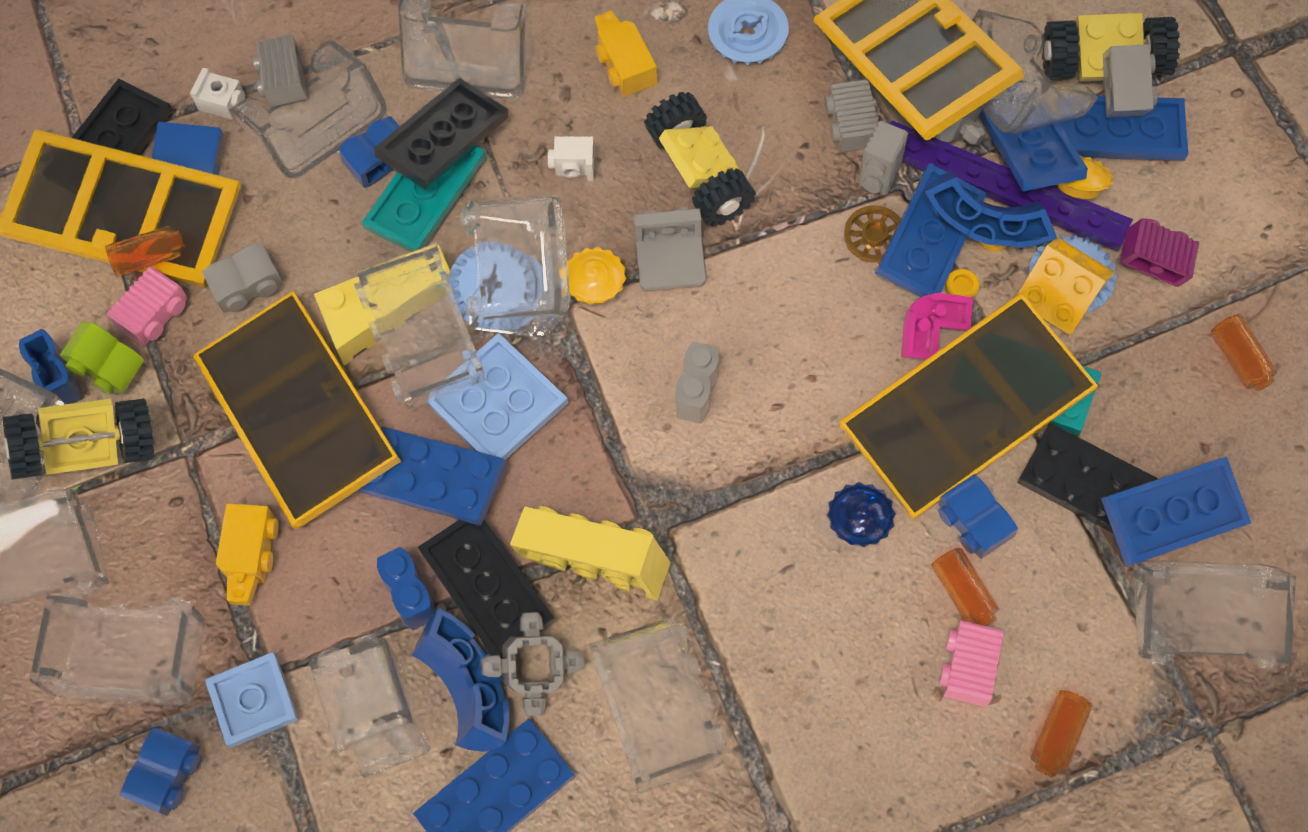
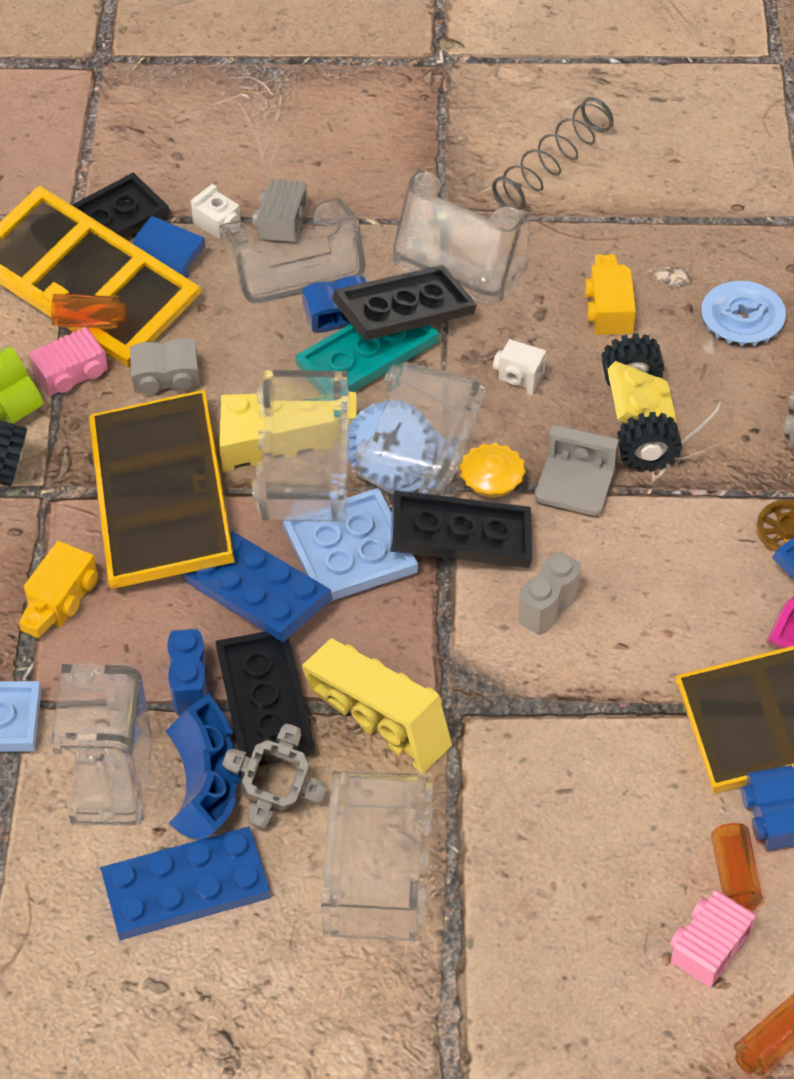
camera: 20 degrees right, 15 degrees down
(591, 348) = (461, 529): none -> black plate
(861, 514) = (659, 762): clear blue piece -> none

